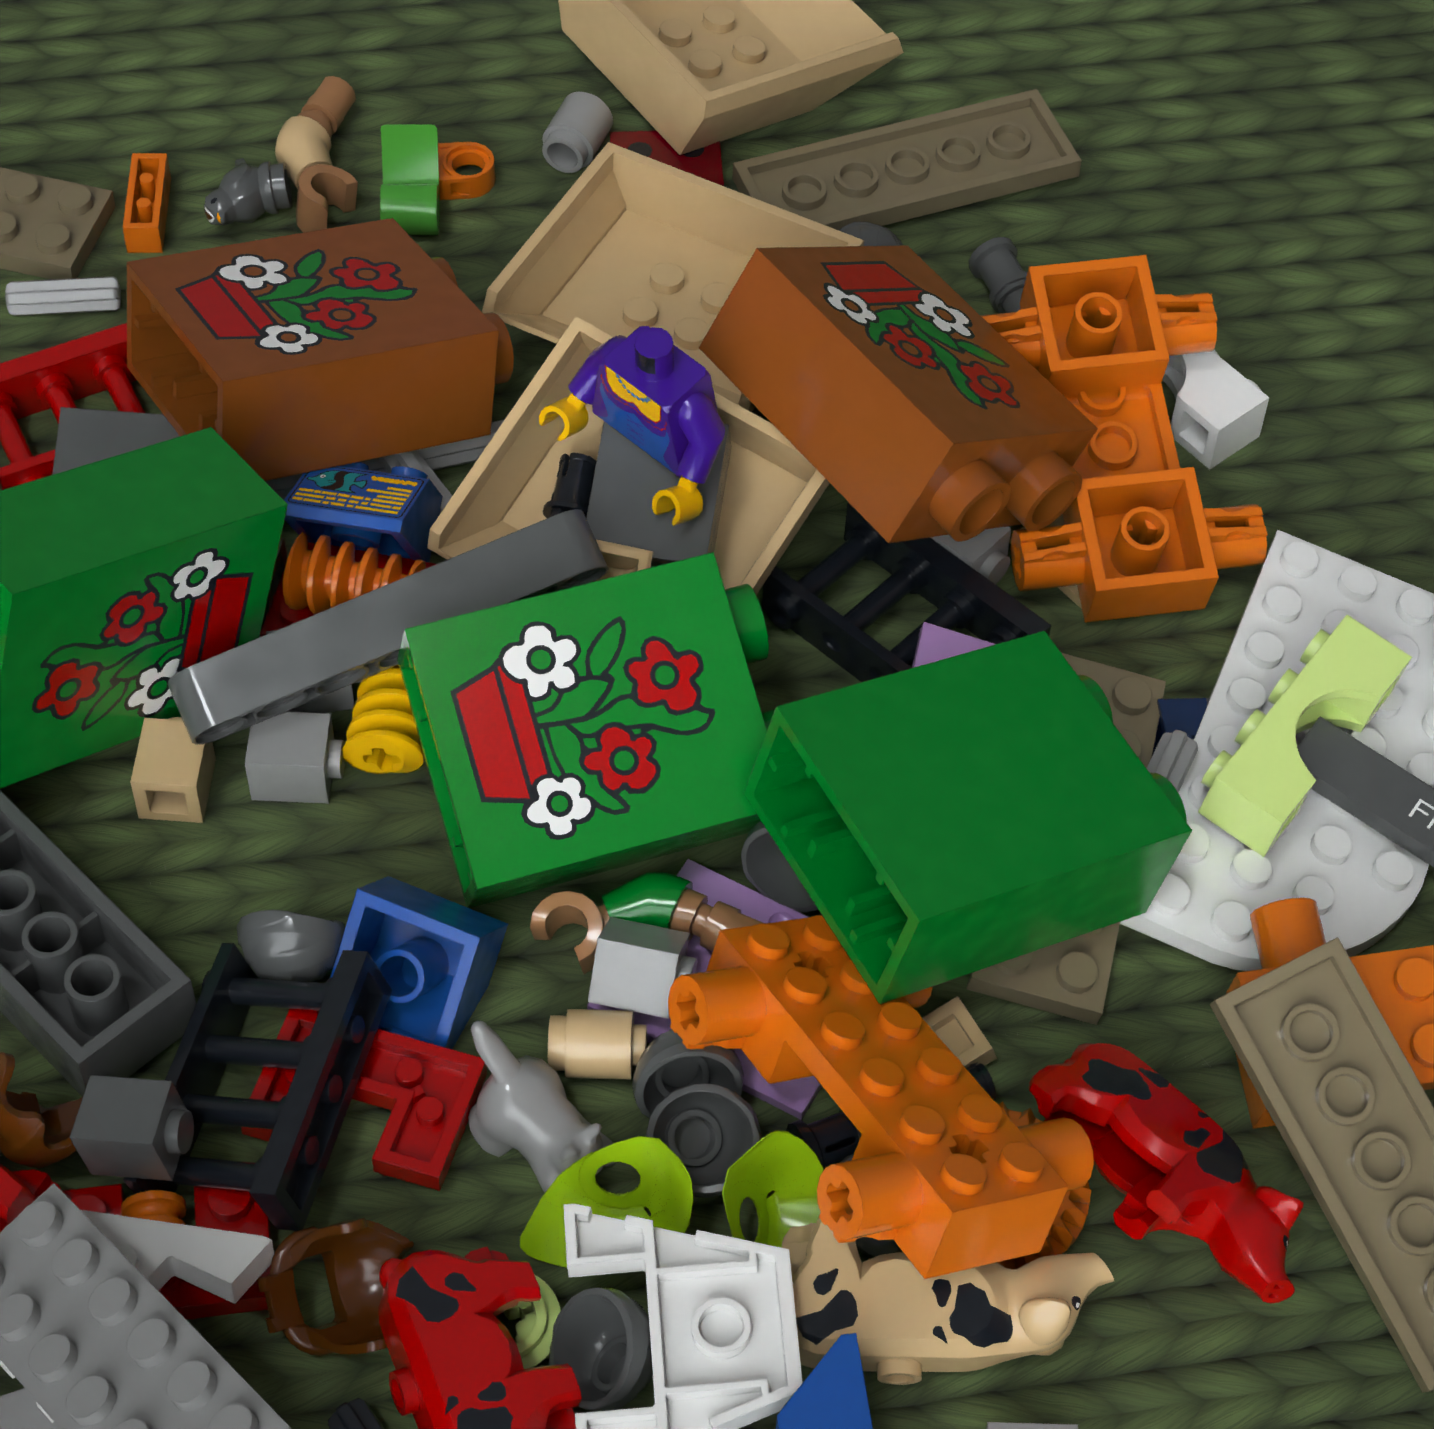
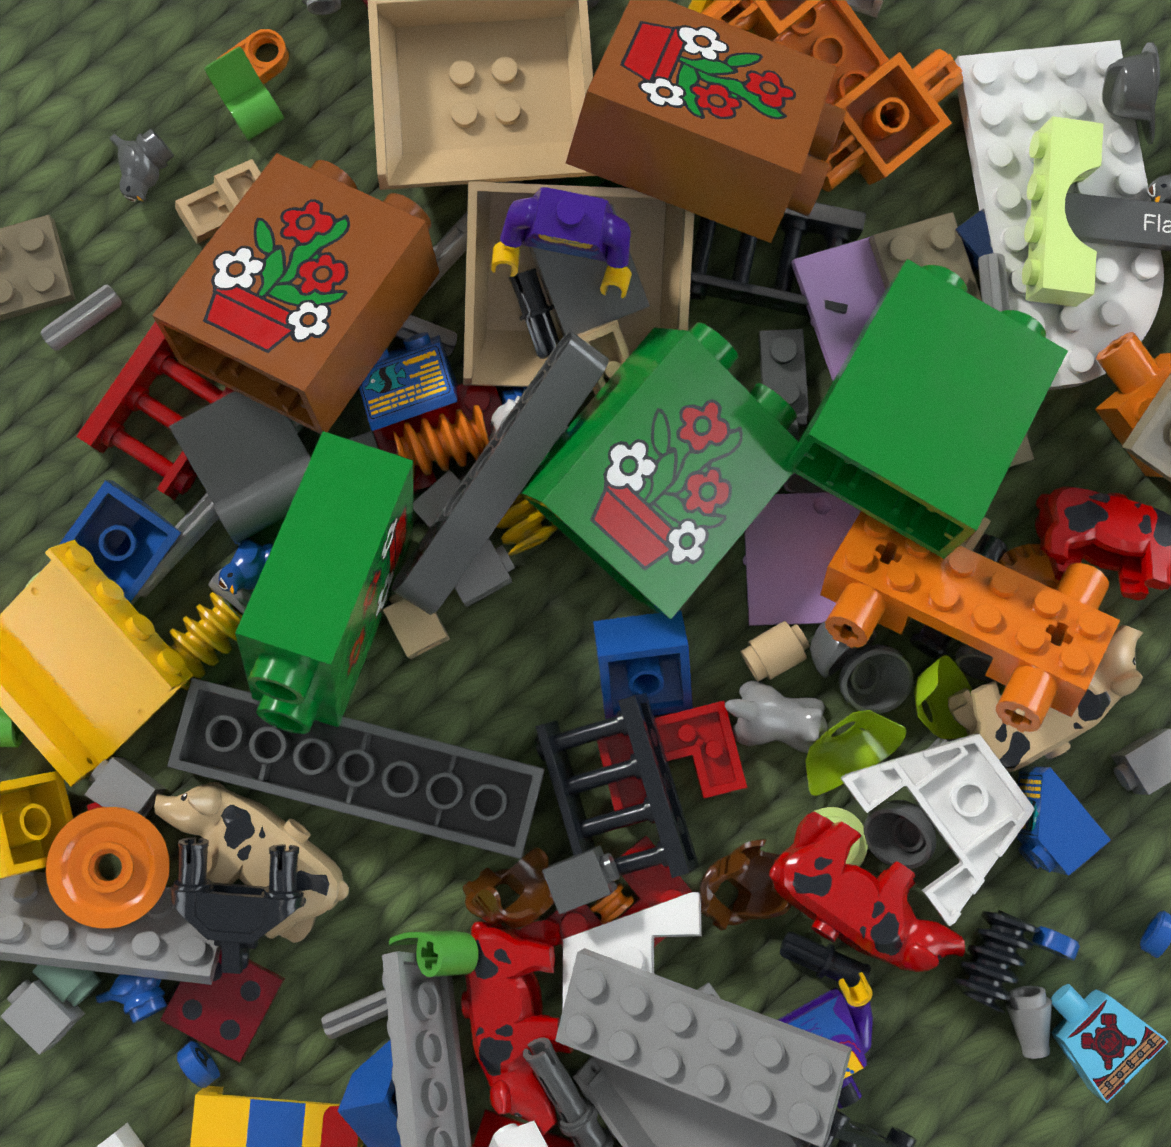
camera: 30 degrees left, 30 degrees up
(147, 203) = (77, 209): orange piece -> none
(289, 944) = (570, 698): dark grey piece -> none
(305, 150) = (154, 109): medium nougat piece -> none
(638, 966) = (777, 595): light grey brick -> none
(649, 899) = (759, 546): medium nougat piece -> none

